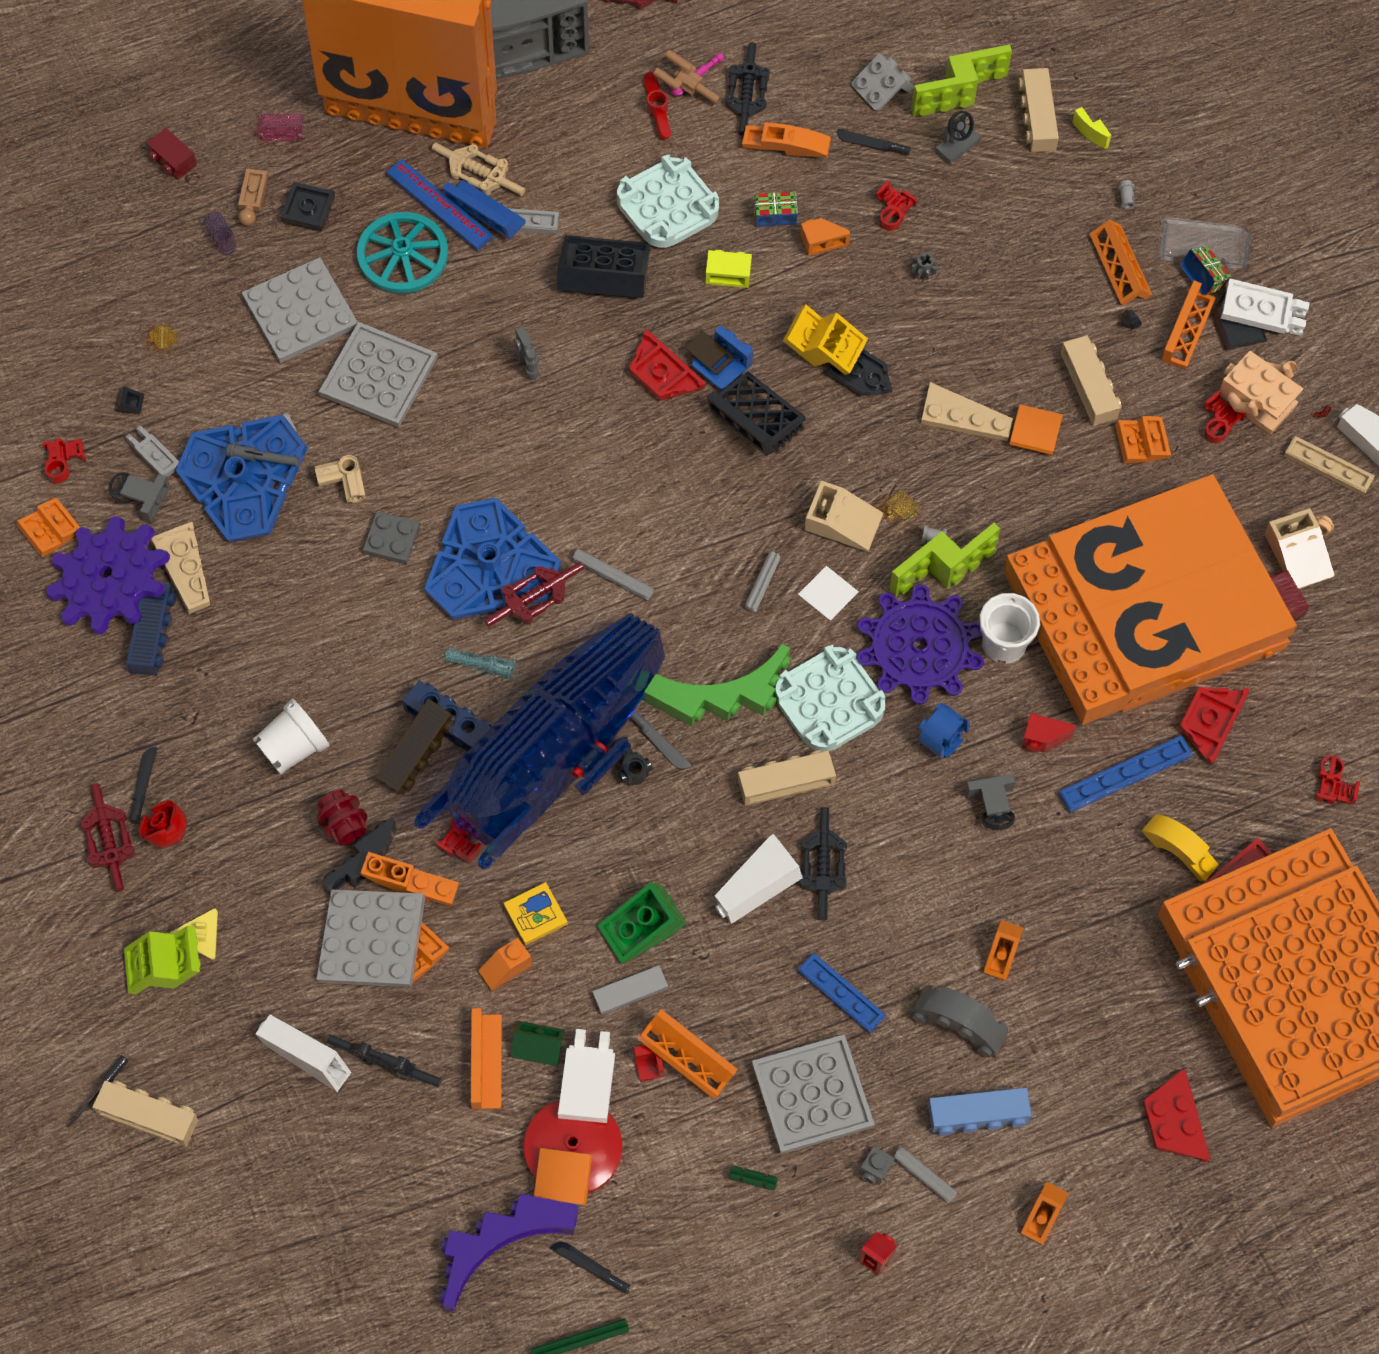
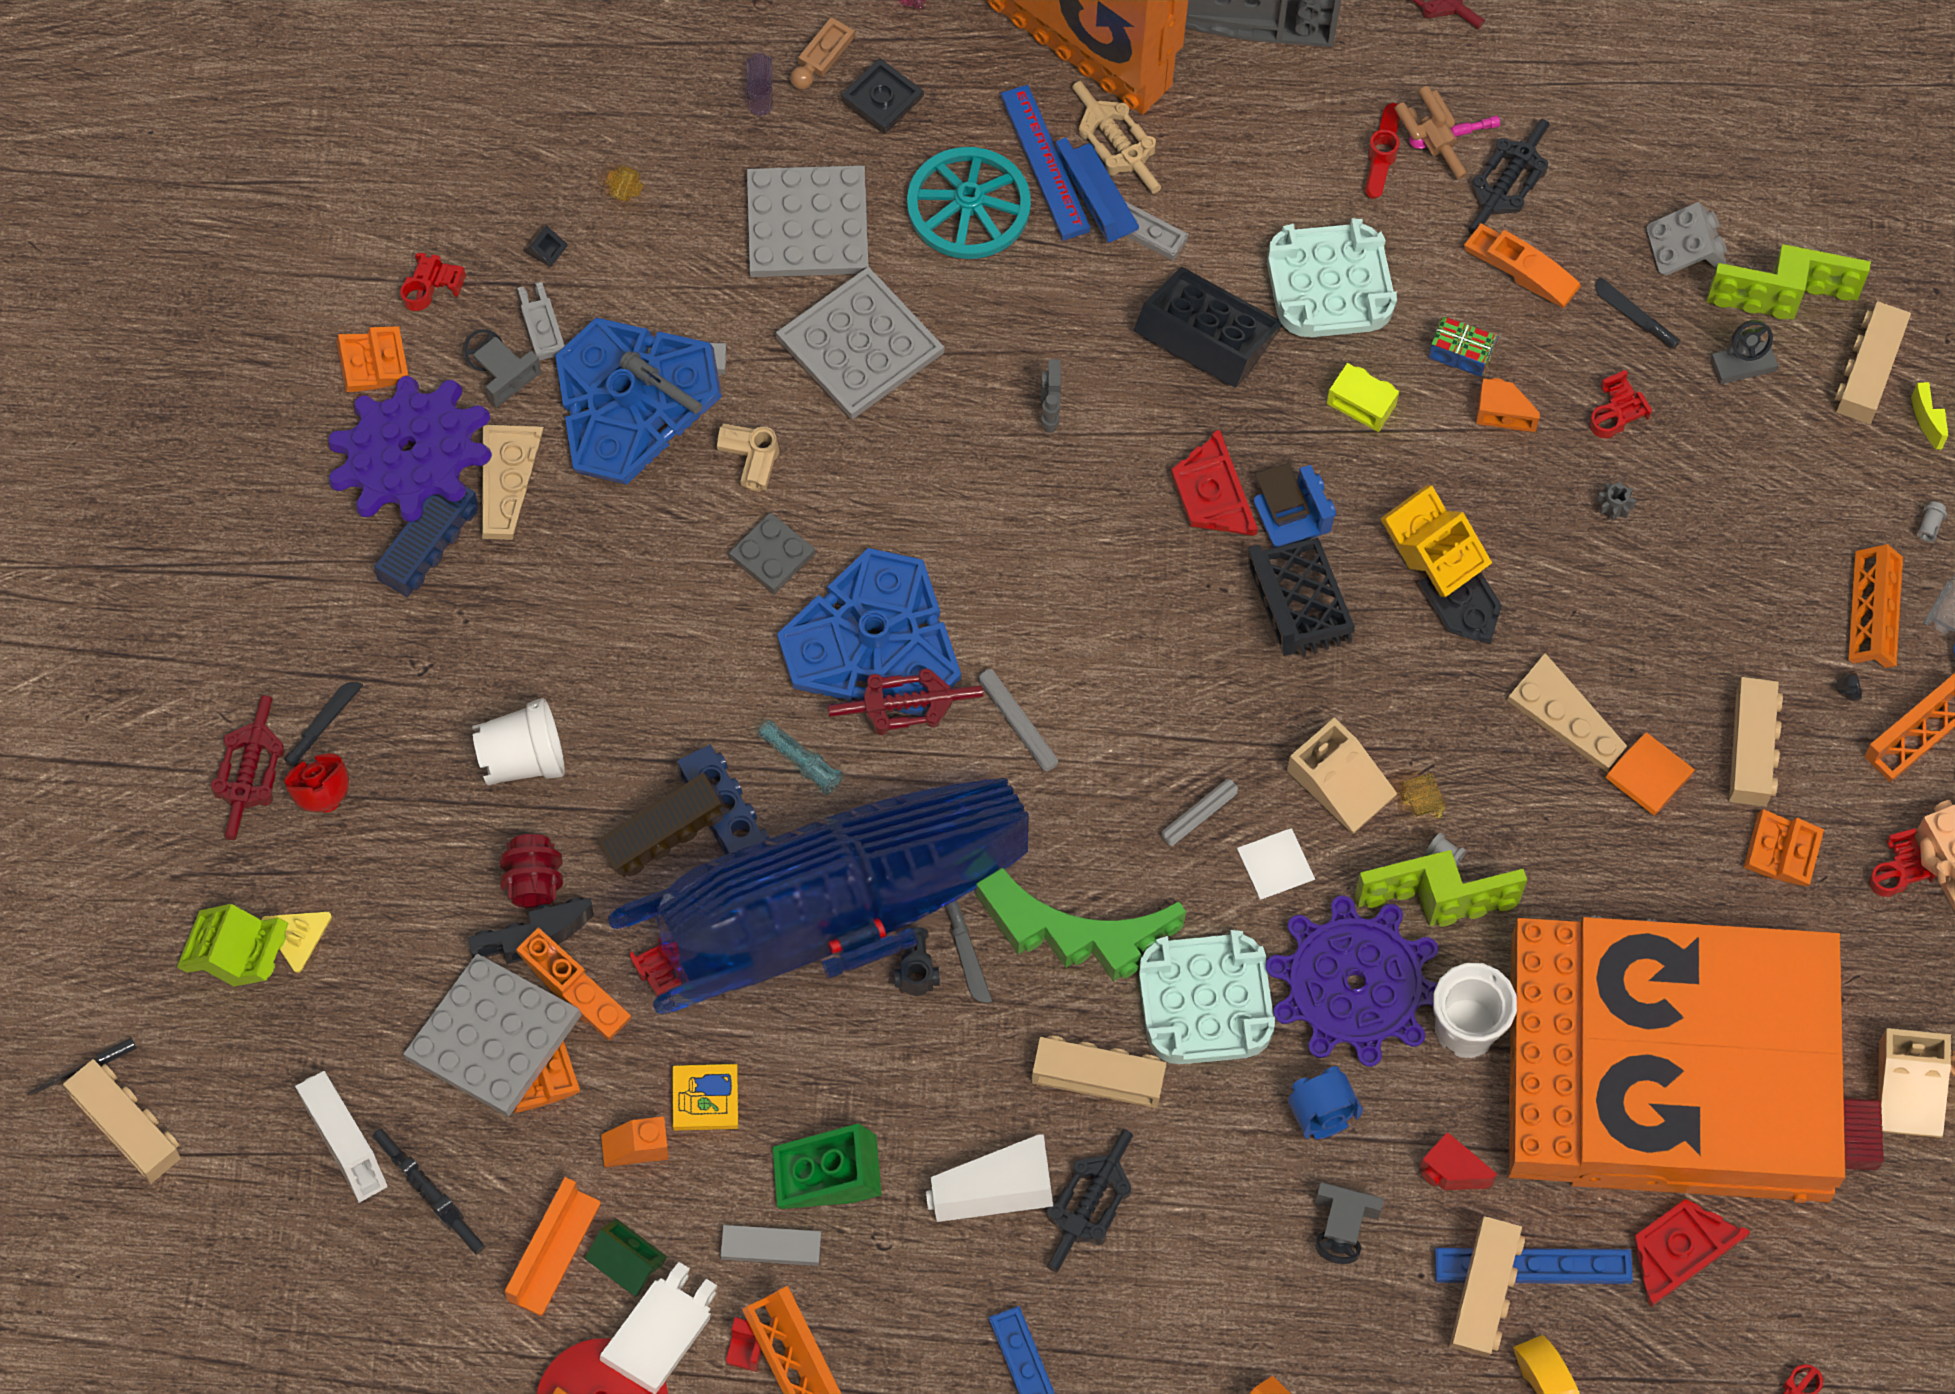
camera: 25 degrees right, 0 degrees up
(1106, 800) = (1486, 1287): none -> tan brick

